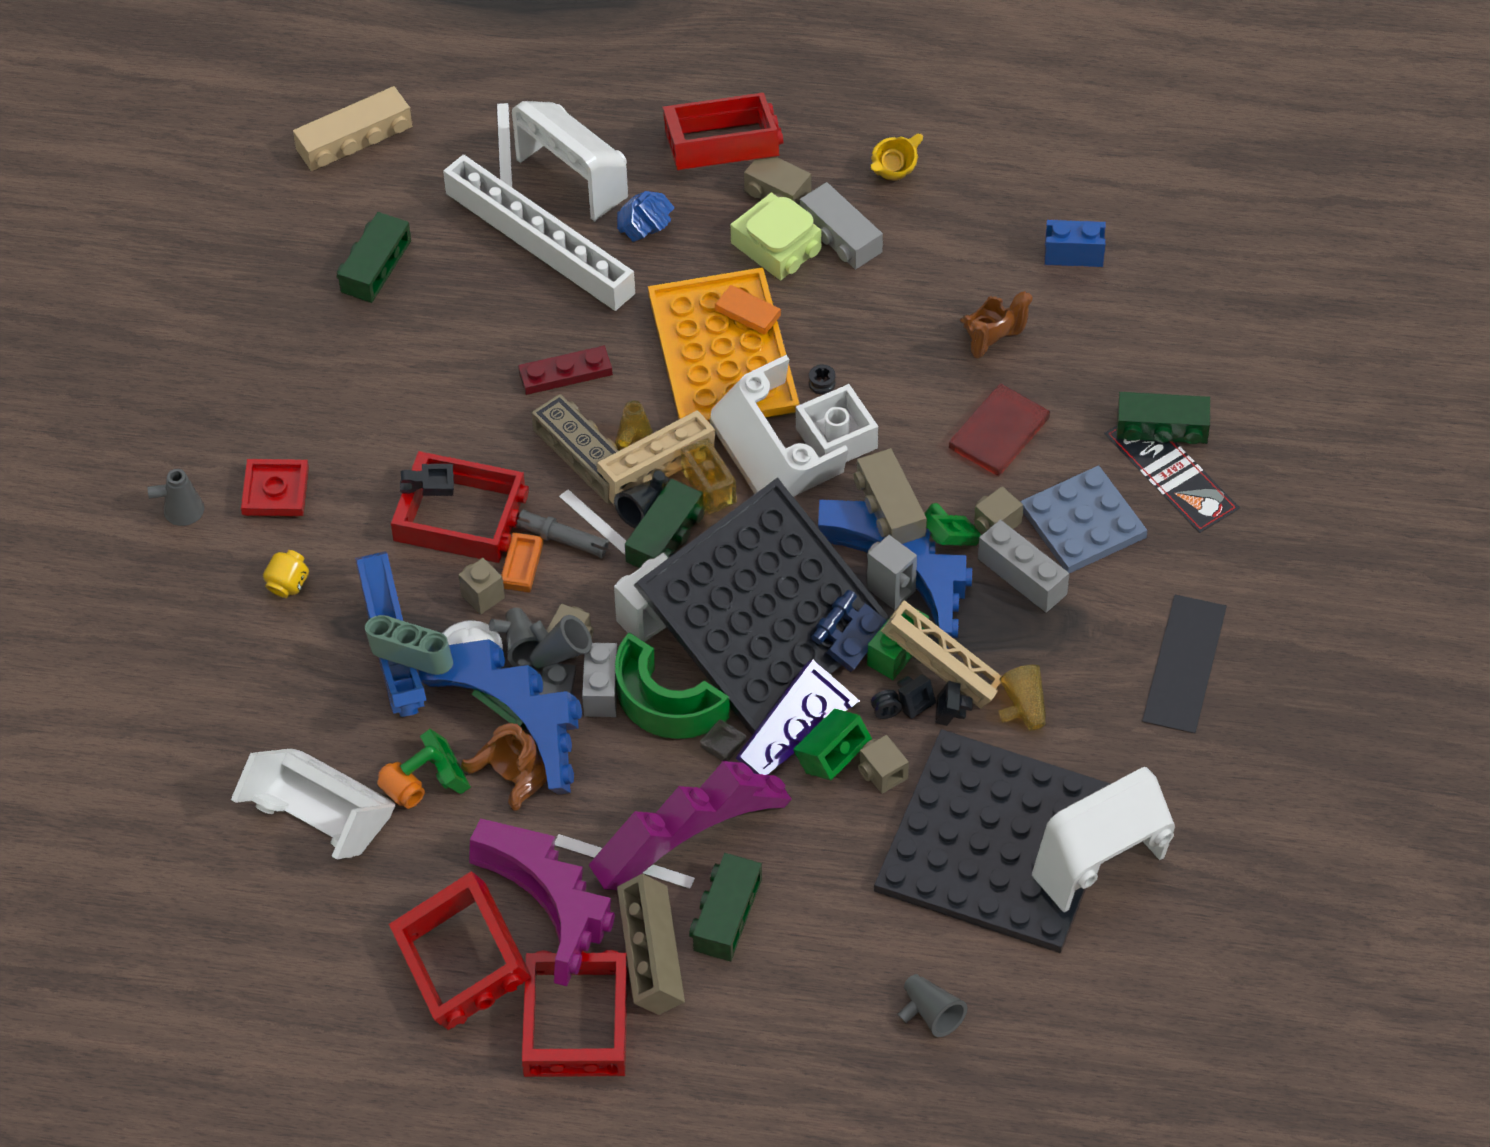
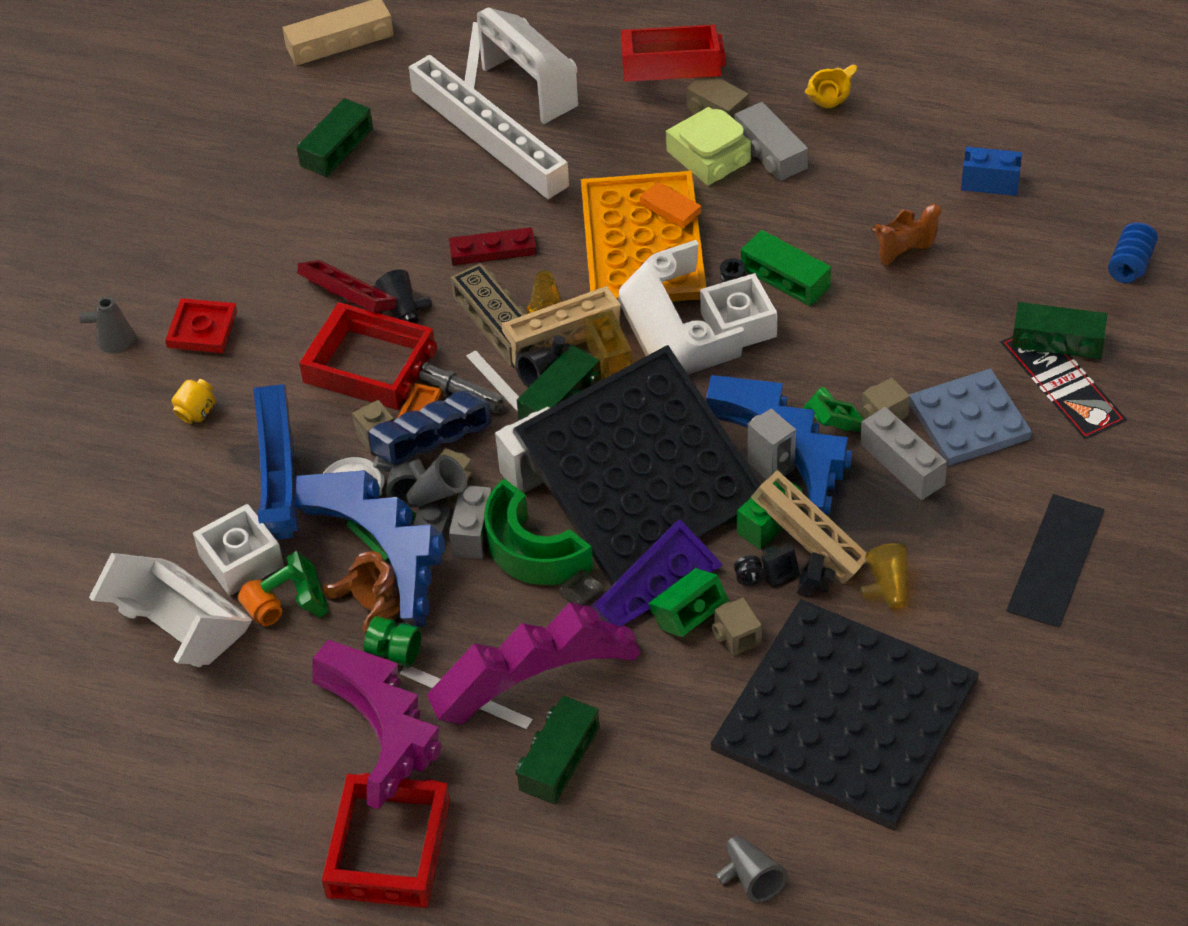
camera: 10 degrees right, 5 degrees down
(368, 732) = (238, 549): none -> white brick
(409, 644) = (287, 468): sand green beam -> none
(421, 430) = (347, 286): none -> dark red plate
(433, 479) = (344, 326): black plate -> none
(435, 912) = (262, 726): red window -> none
(478, 437) = (398, 284): none -> black piece
(539, 583) = (429, 427): none -> dark blue brick
(544, 813) = (394, 642): none -> green wheel
(644, 214) = (588, 117): blue hair -> none
(650, 944) = (473, 778): dark tan brick -> none
(853, 641) = (721, 510): dark blue plate -> none
(877, 370) = (786, 268): none -> green brick
(890, 497) = (778, 376): dark tan brick -> none
(999, 429) = (897, 329): clear red tile -> none
(1100, 829) = (944, 704): white windscreen -> none
(1228, 324) = (1132, 252): none -> blue piece

